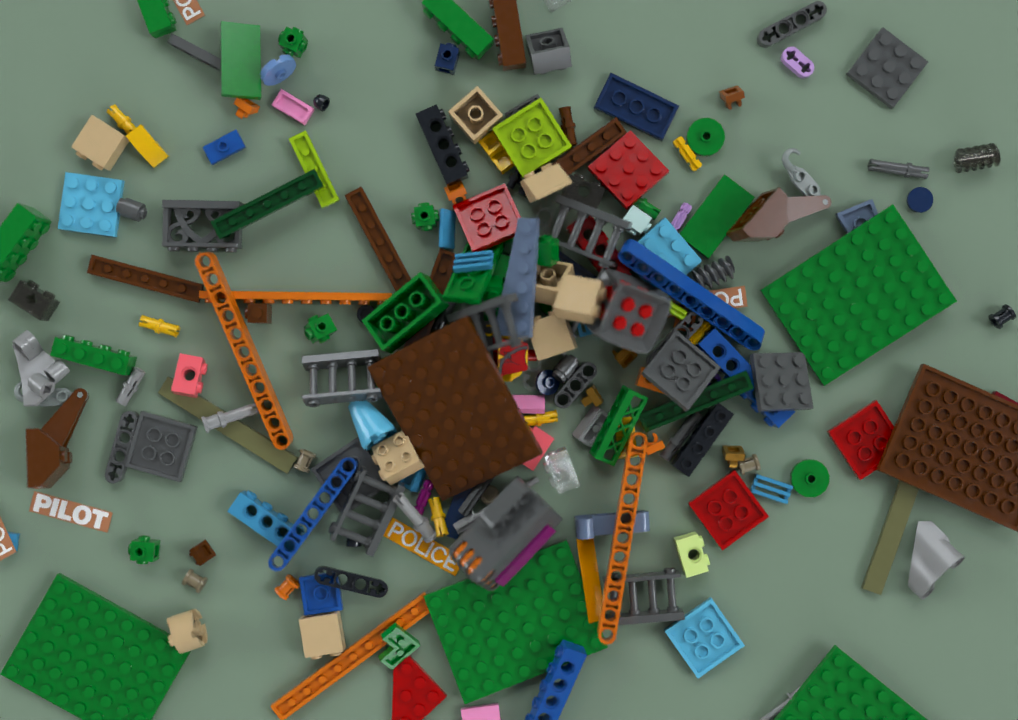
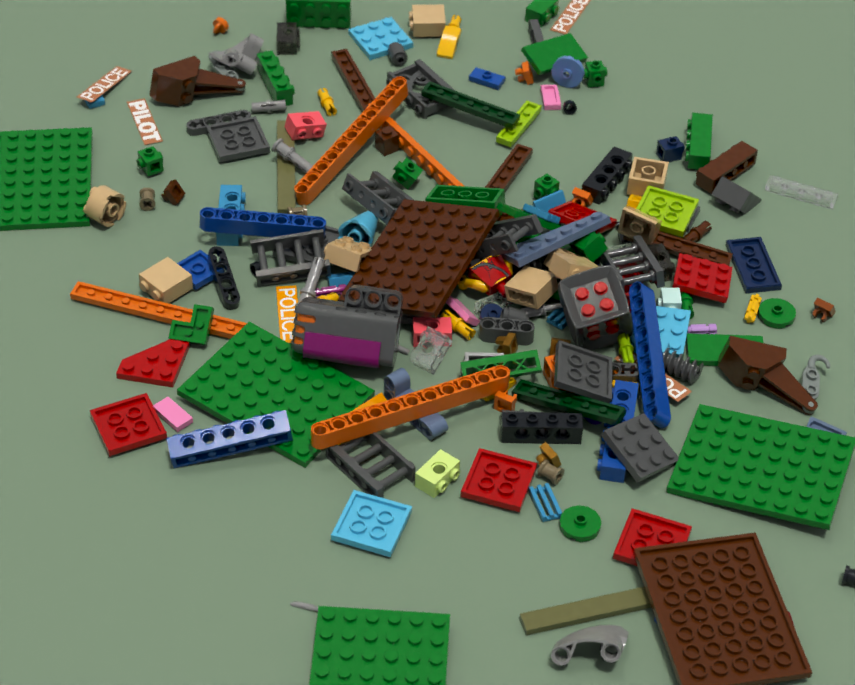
camera: 55 degrees right, 45 degrees down
(287, 587) = (191, 248): orange bush -> none

